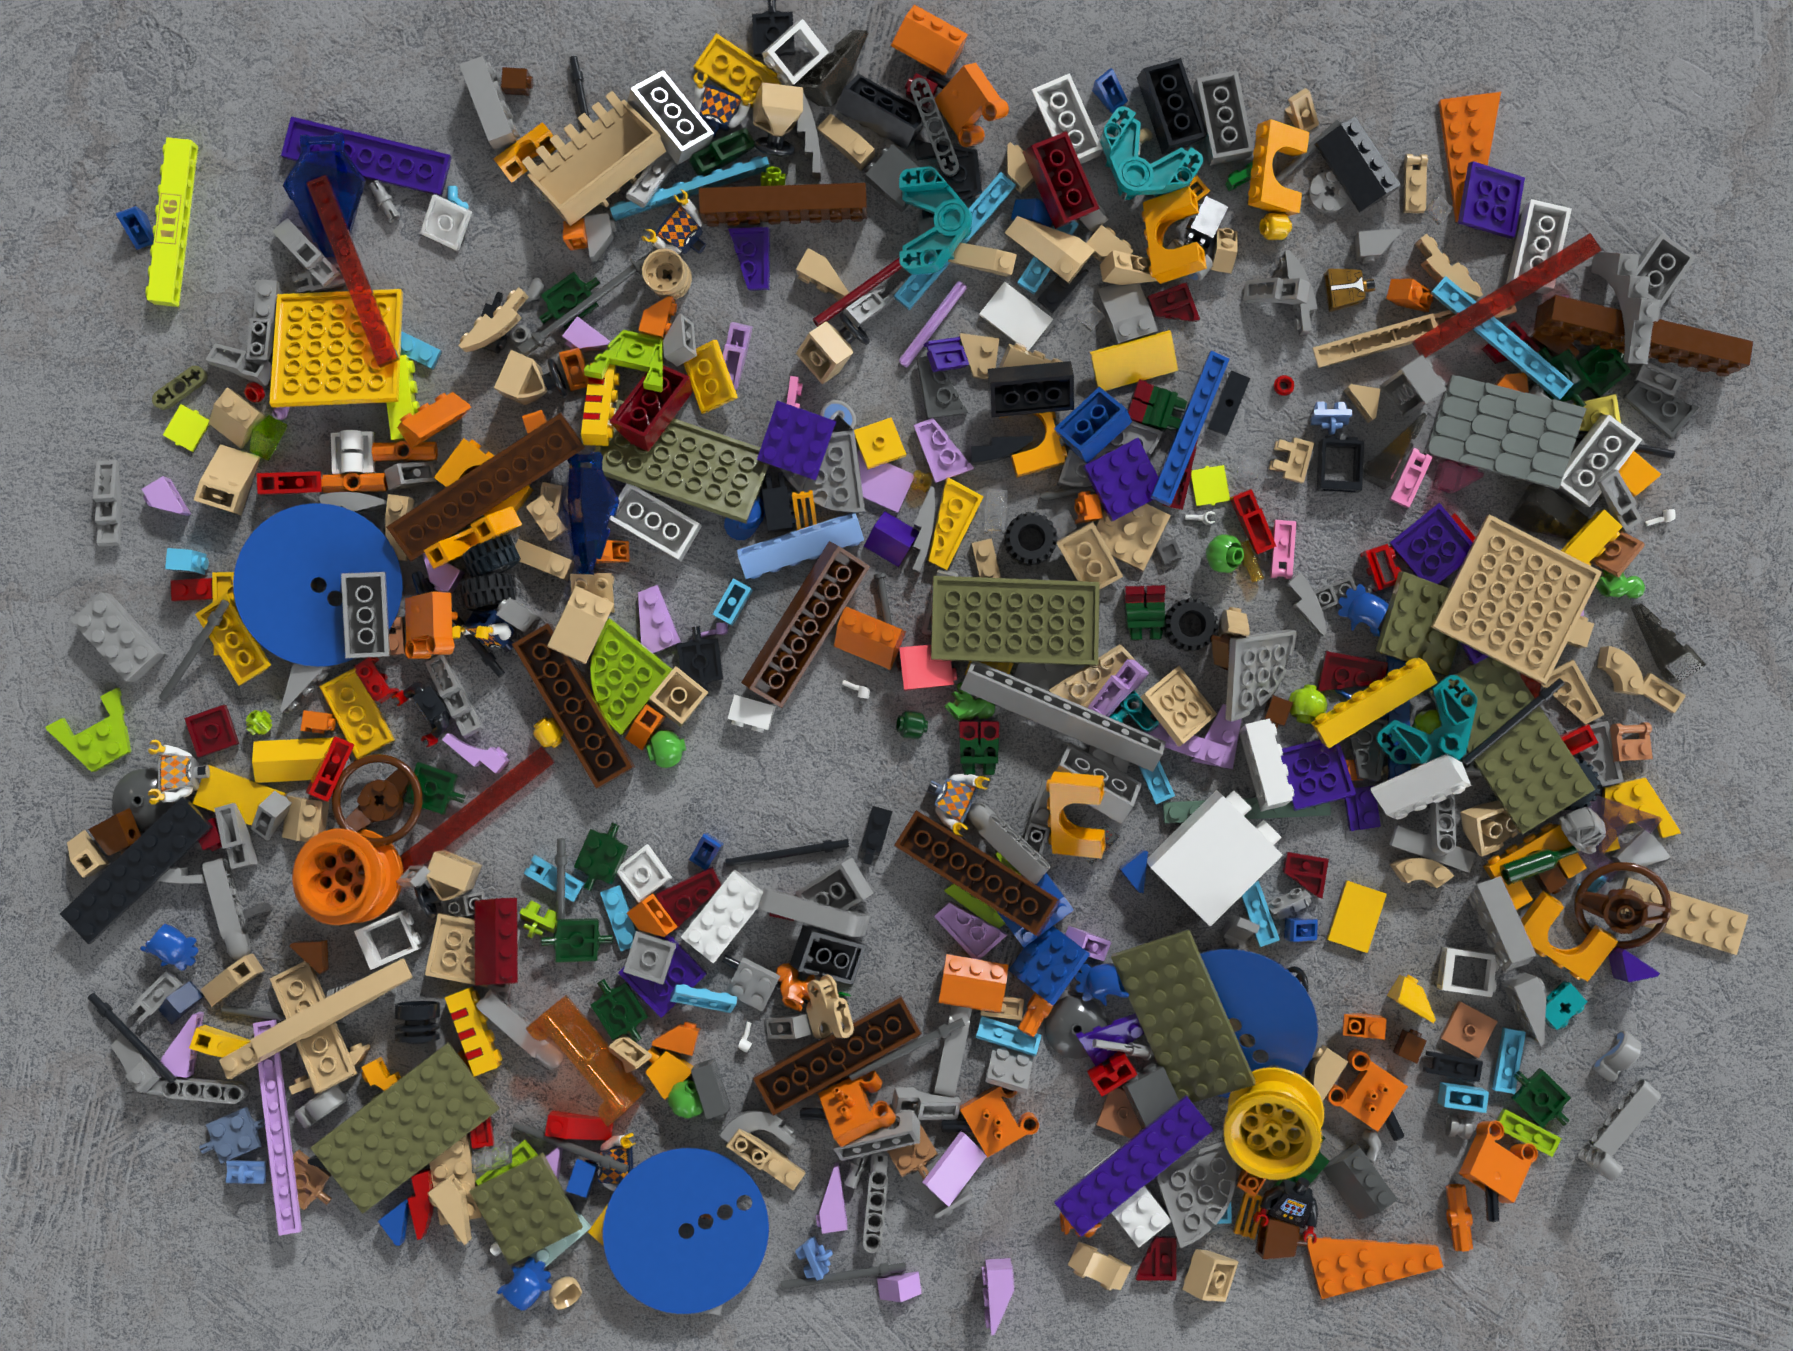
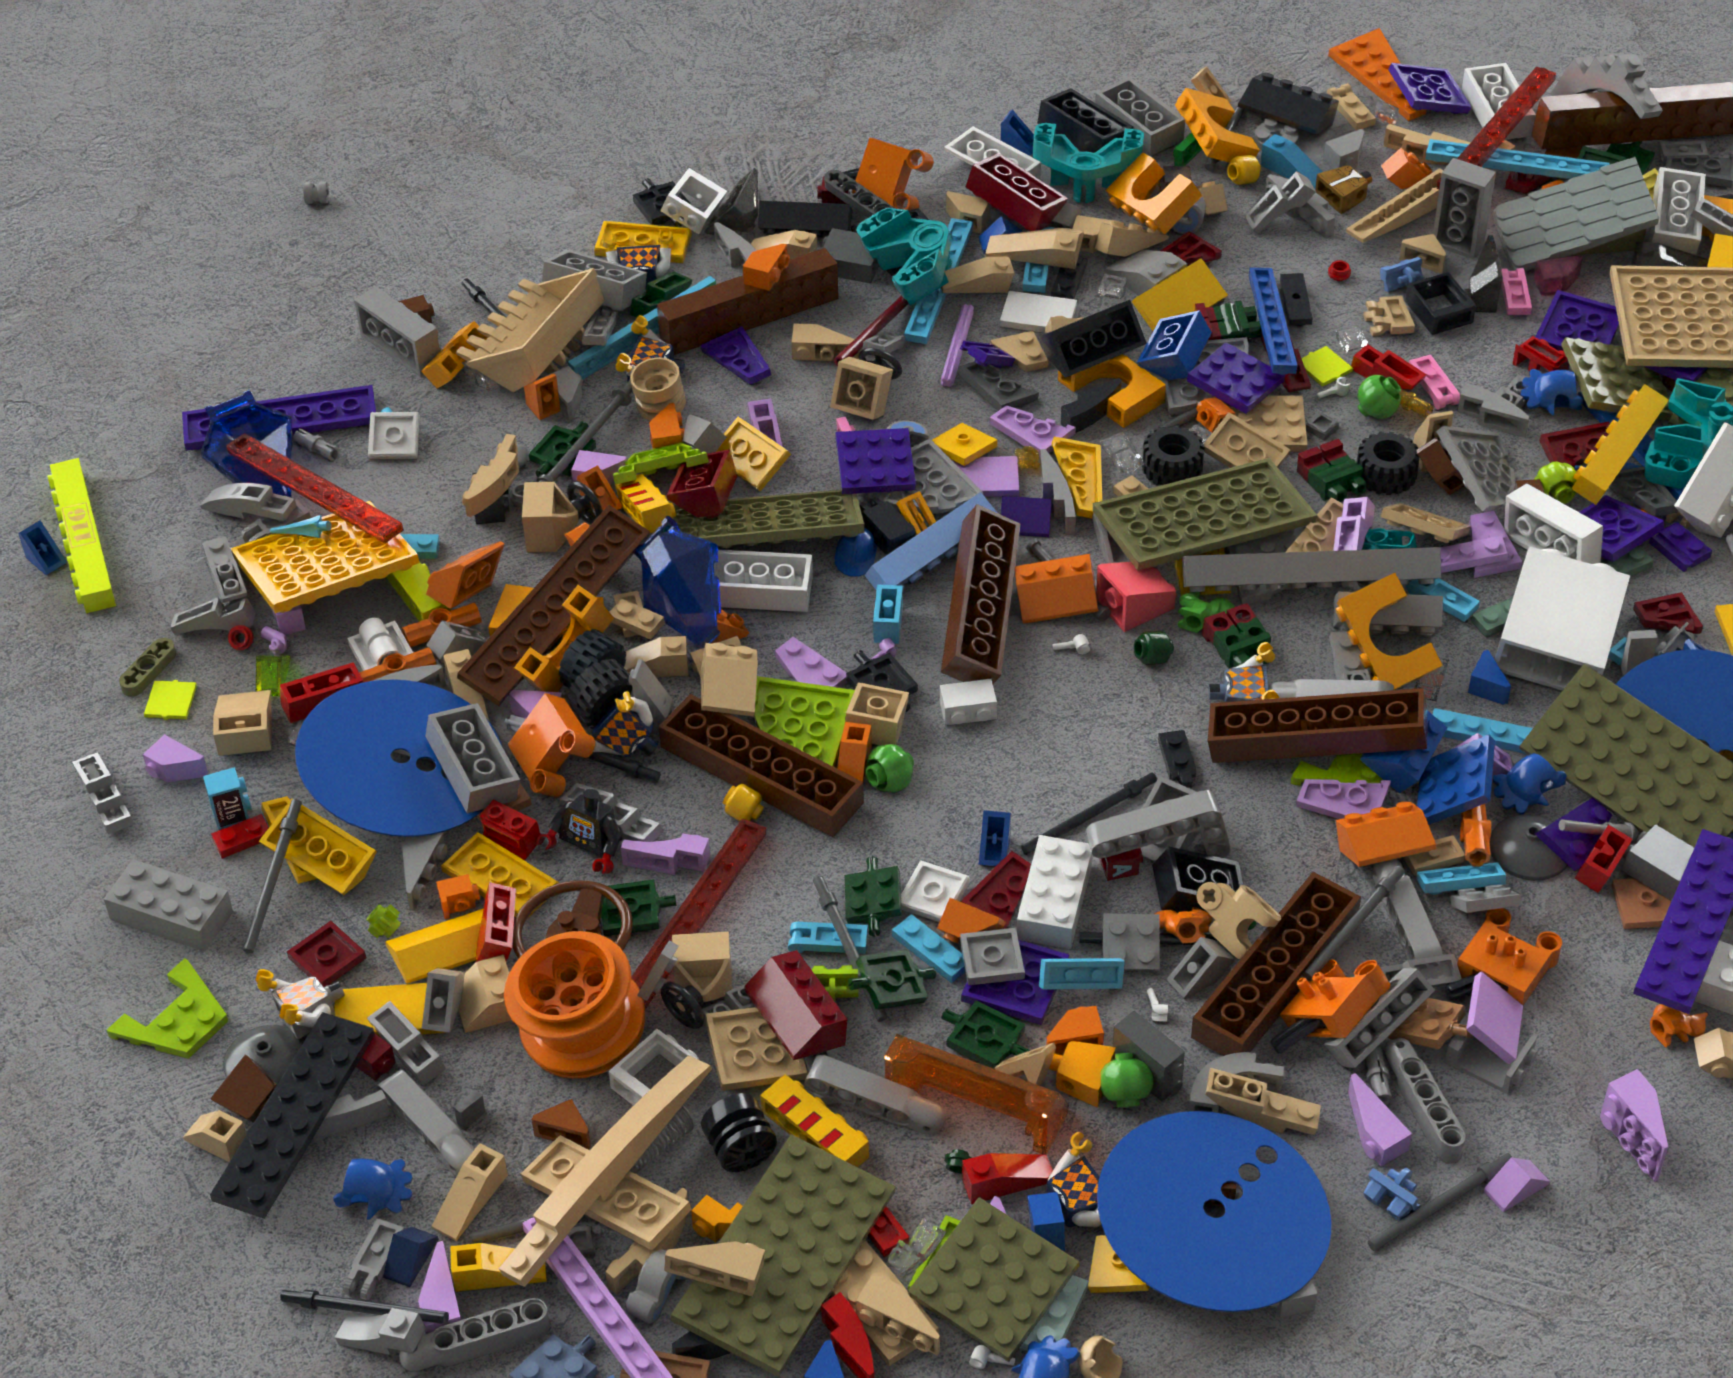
camera: 25 degrees left, 40 degrees down
(235, 417) = (227, 663): tan slope -> none
(338, 308) = (310, 527): none -> medium azure piece
(352, 1137) = (724, 1265): none -> tan slope
(552, 1102) = (954, 1160): none -> dark green plate
(606, 1161) = (1067, 1176): dark grey bar -> none
(776, 112) = (702, 237): tan piece -> none
(801, 191) = (765, 266): none -> orange slope
(929, 40) = (821, 151): orange slope -> none
(1106, 912) = (1464, 726): none -> medium azure plate
(1321, 237) = (1286, 158): none -> dark azure slope

